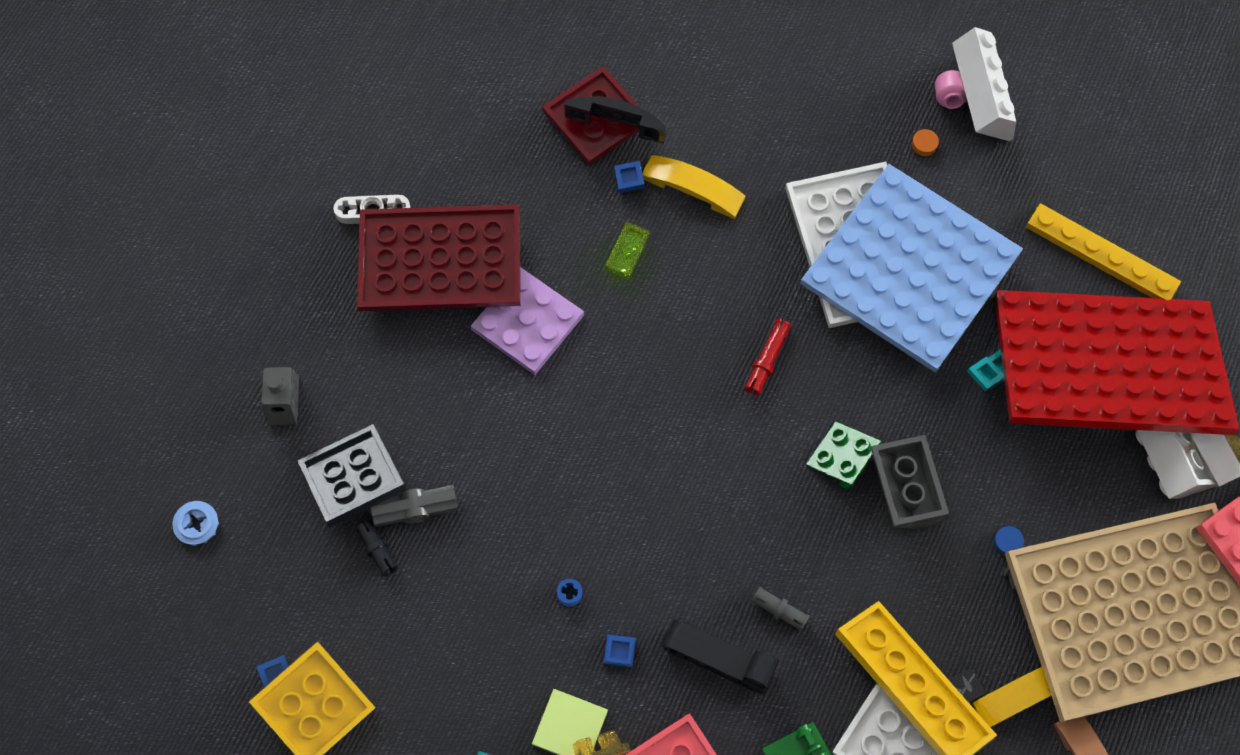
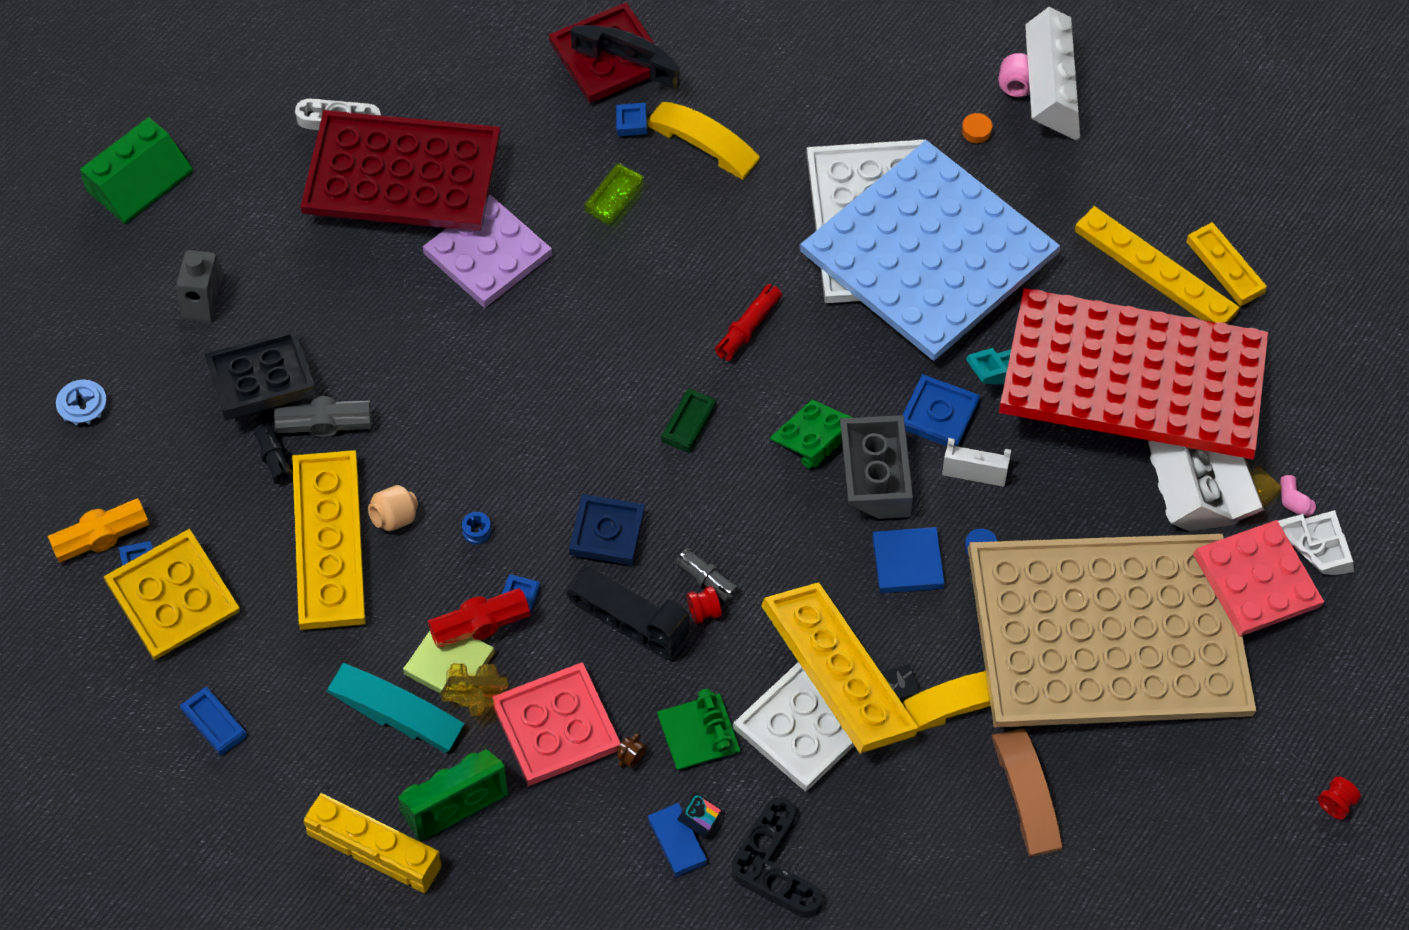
camera: 10 degrees right, 10 degrees down
(203, 289) = (135, 171): none -> green slope
(234, 649) = (98, 530): none -> light orange piece
(441, 626) = (328, 540): none -> yellow plate
(493, 587) = (393, 508): none -> light nougat head
(591, 686) = (478, 618): none -> red piece
(685, 577) = (607, 529): none -> dark blue plate
(733, 458) = (688, 420): none -> dark green tile
(783, 639) = (703, 605): none -> red wheel
(947, 417) = (939, 411): none -> blue tile
(949, 565) = (908, 560): none -> blue tile
(990, 464) = (975, 464): none -> white hinge
(1162, 242) = (1226, 264): none -> yellow plate

